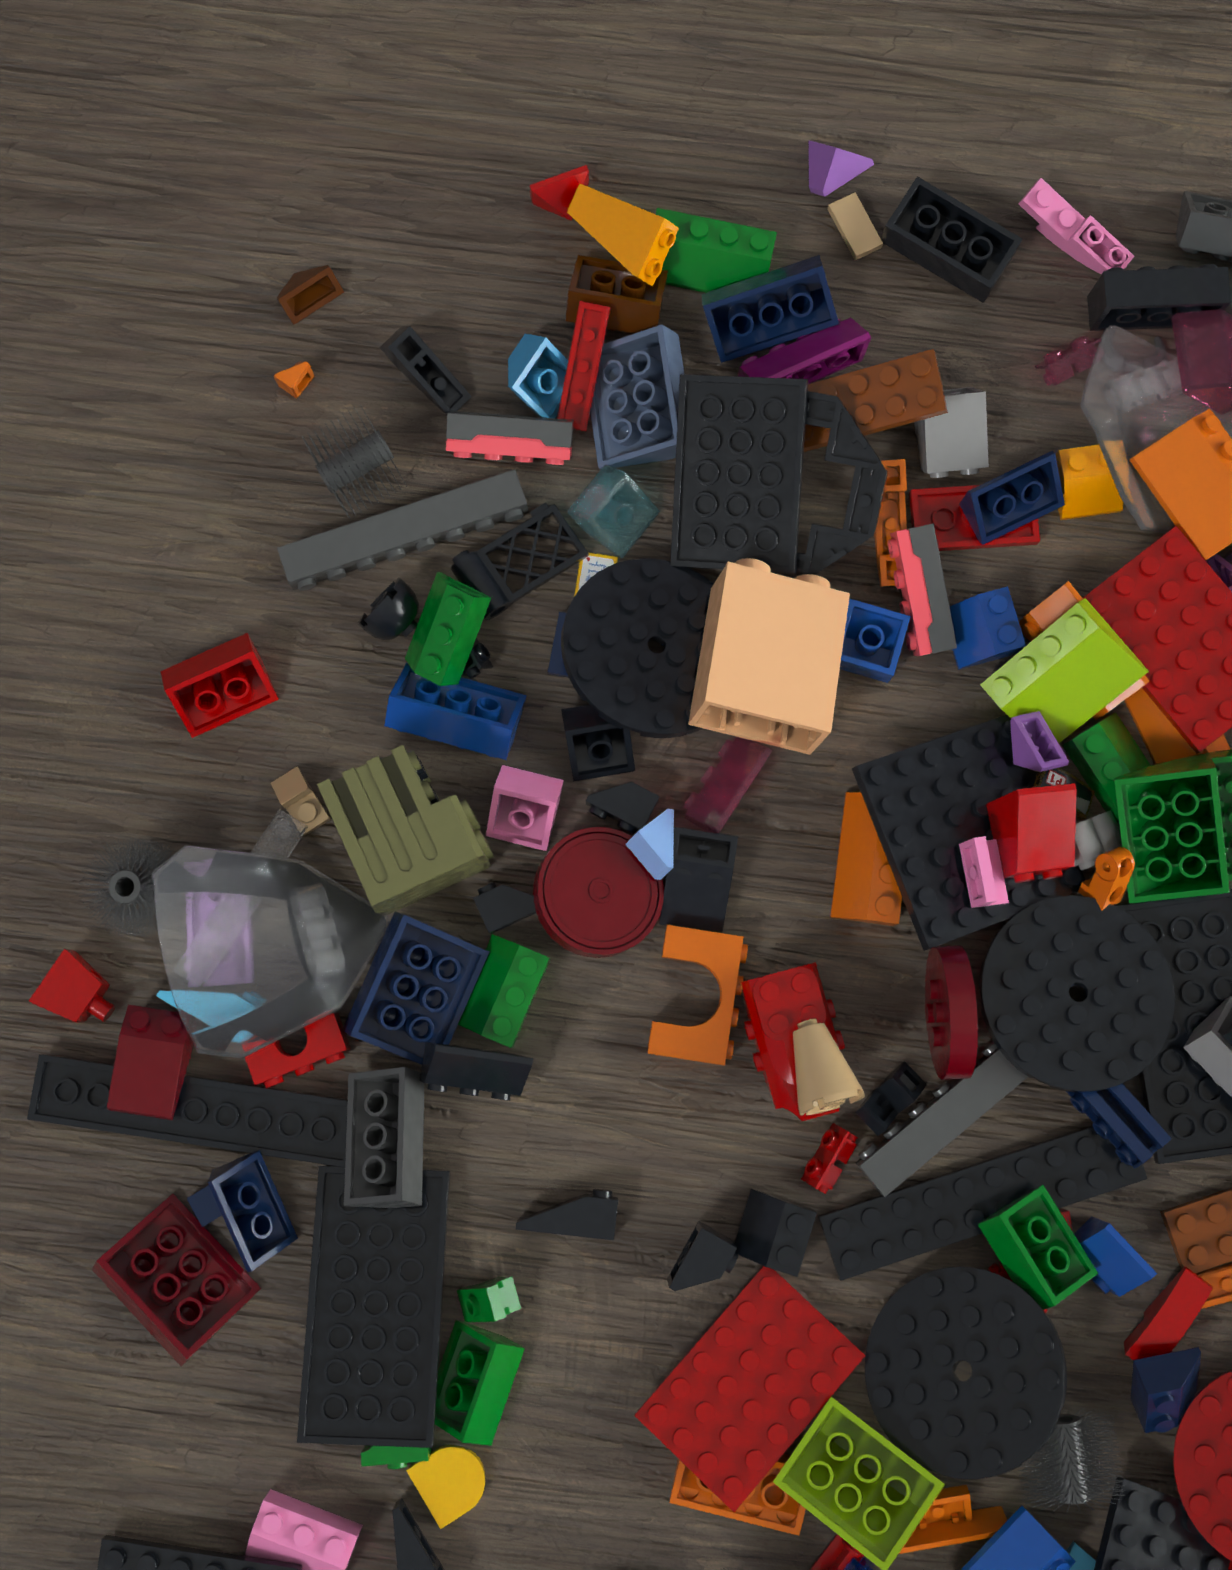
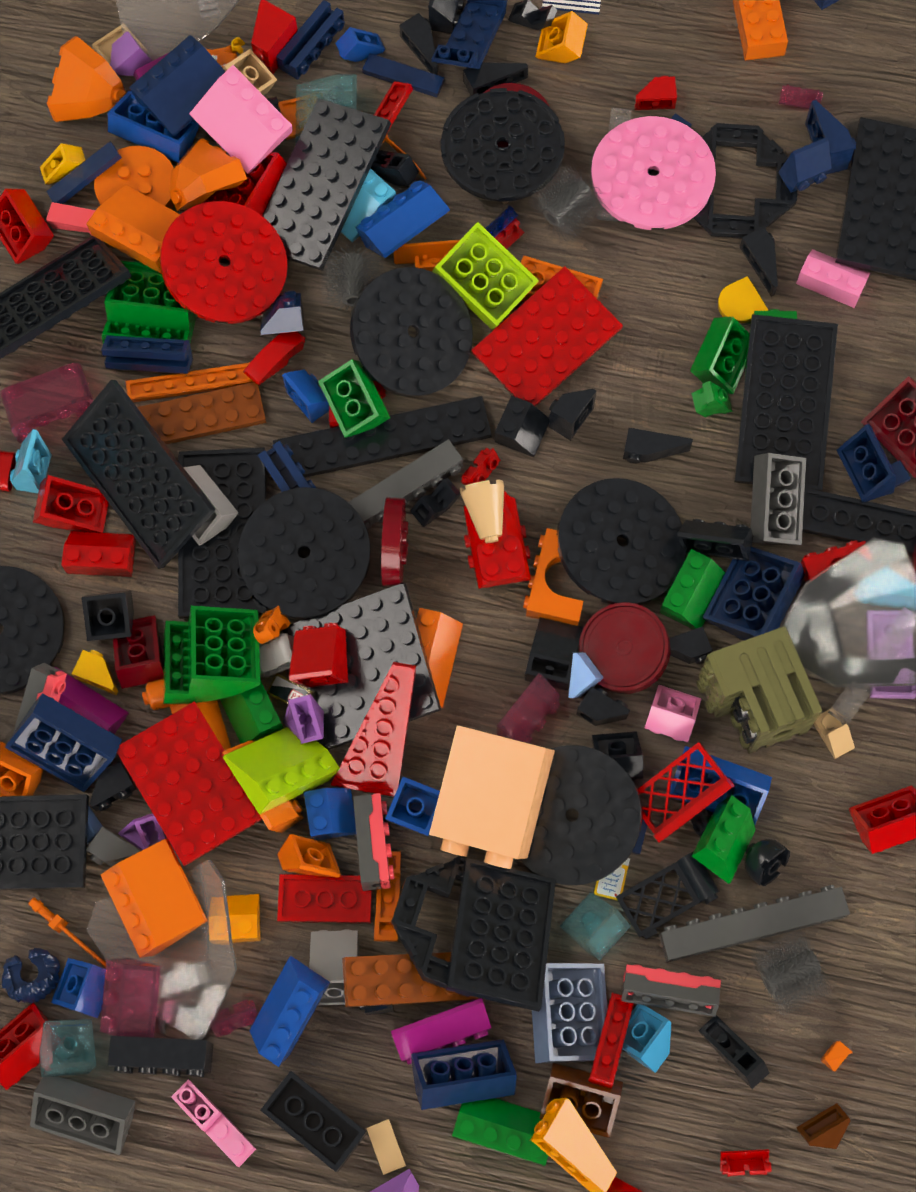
camera: 170 degrees left, 10 degrees down
(419, 240) = (736, 1162): none -> red hinge
(488, 670) = (695, 806): none -> red fence
(660, 1064) = (590, 545): none -> black plate
(930, 719) = (379, 746): none -> wing
(983, 872) = (357, 631): bright pink panel -> none
(1004, 560) = (308, 857): none -> orange slope
(1006, 358) = (287, 1011): none -> blue slope
(1014, 498) = (295, 903): dark blue slope -> none

